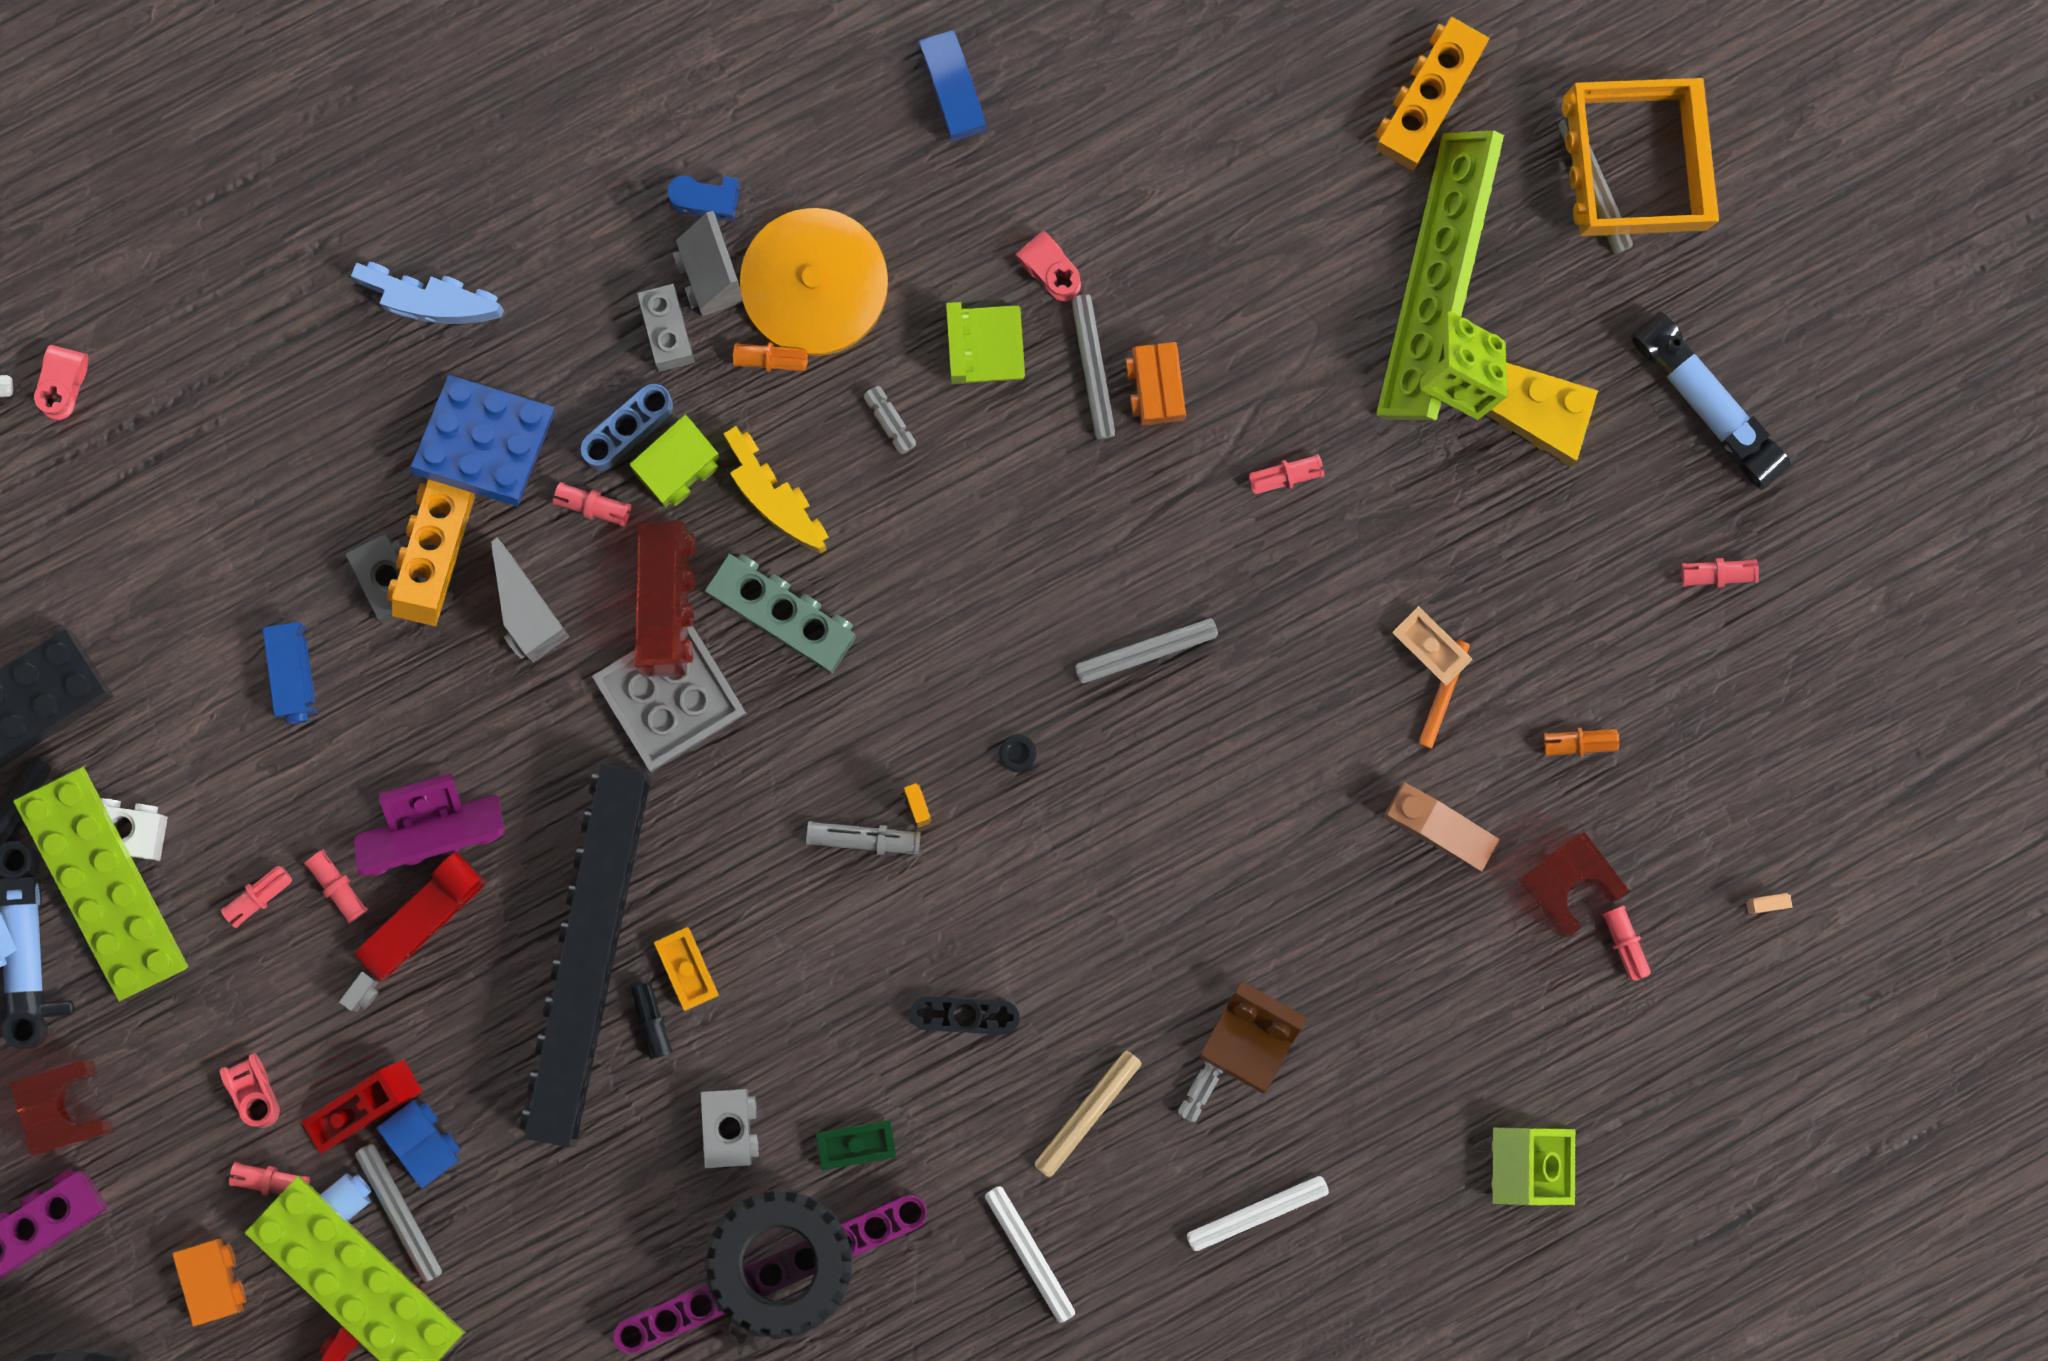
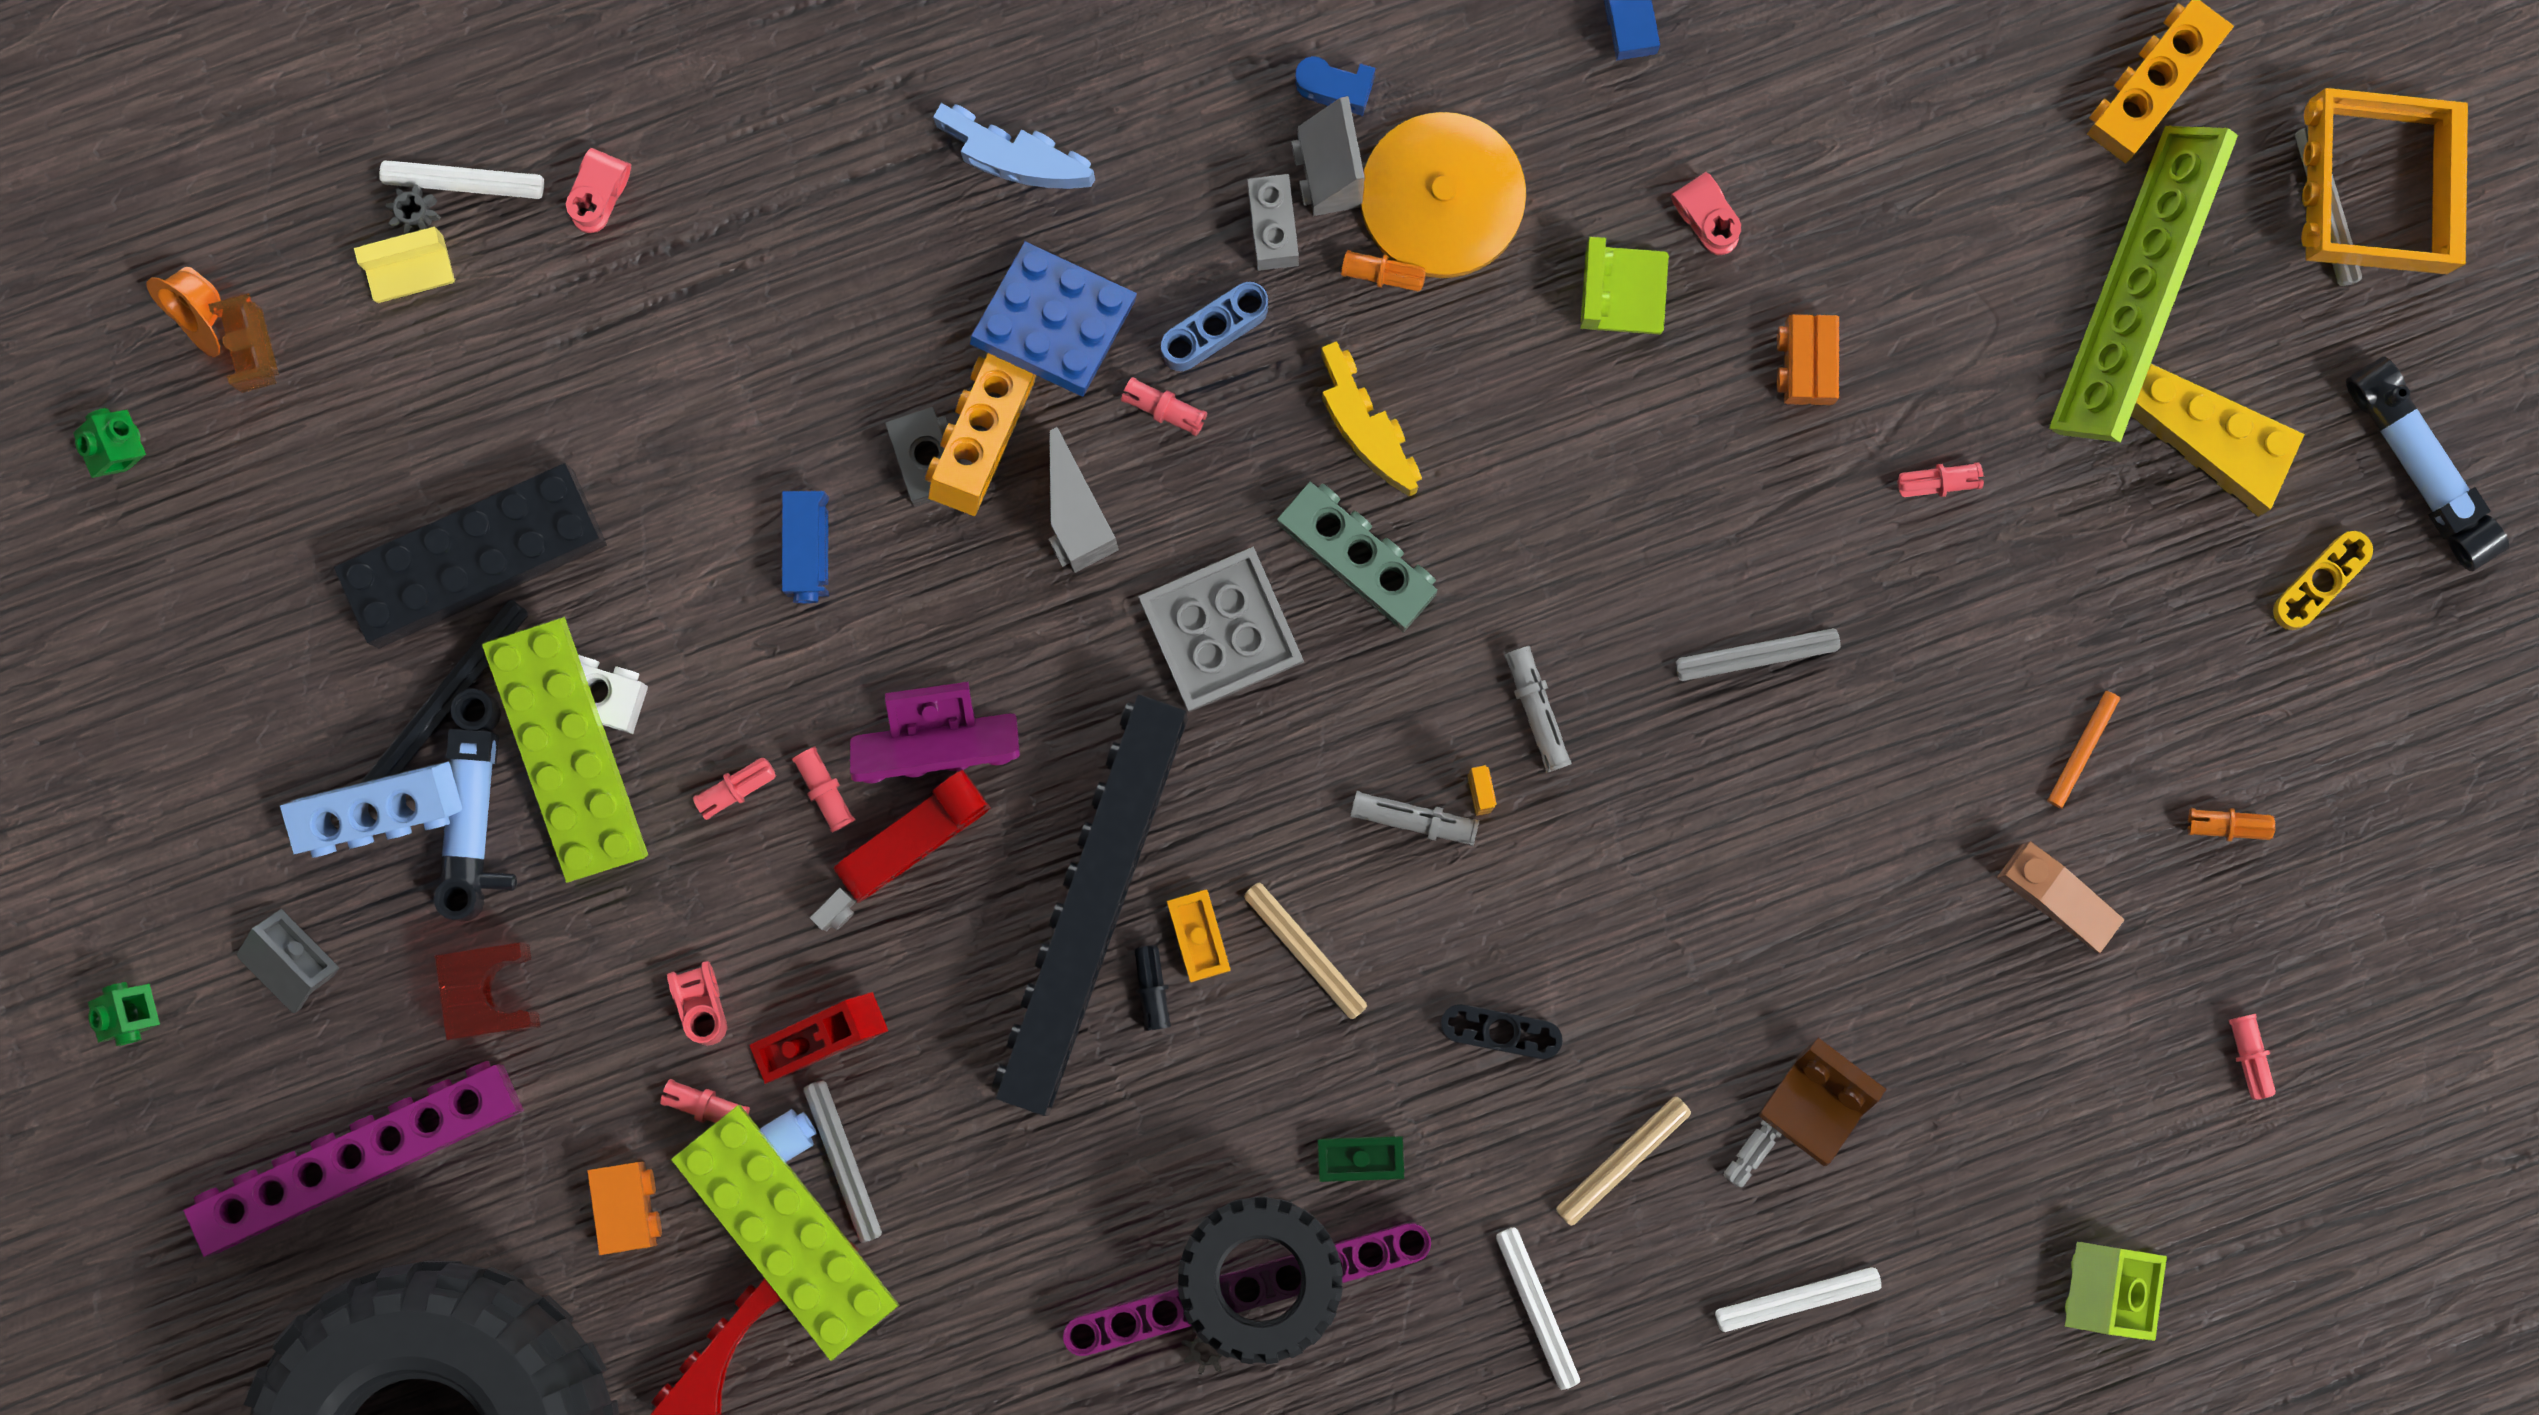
camera: 15 degrees right, 0 degrees up
(420, 1143) = (876, 1086): blue brick -> none
(663, 599) = (1230, 522): clear red brick -> none
(676, 462) = (1264, 372): lime slope -> none
(718, 1149) = (1207, 1142): light grey brick -> none
(782, 968) = (1305, 950): none -> tan axle
(889, 420) = (1506, 359): light grey axle -> none
(955, 719) = (1537, 707): none -> light grey pin
(1017, 753) = (1599, 748): black tile -> none
(1093, 367) = (1740, 331): light grey axle -> none
(1432, 646) = (2079, 693): light nougat plate -> none
(1472, 369) = (2169, 394): lime bracket -> none
(1557, 873) = (2183, 969): clear red piece -> none
(1657, 500) = (2335, 551): none -> yellow beam
(1719, 572) = (2412, 657): coral pin -> none
(1769, 903) = (2419, 1035): light nougat tile -> none

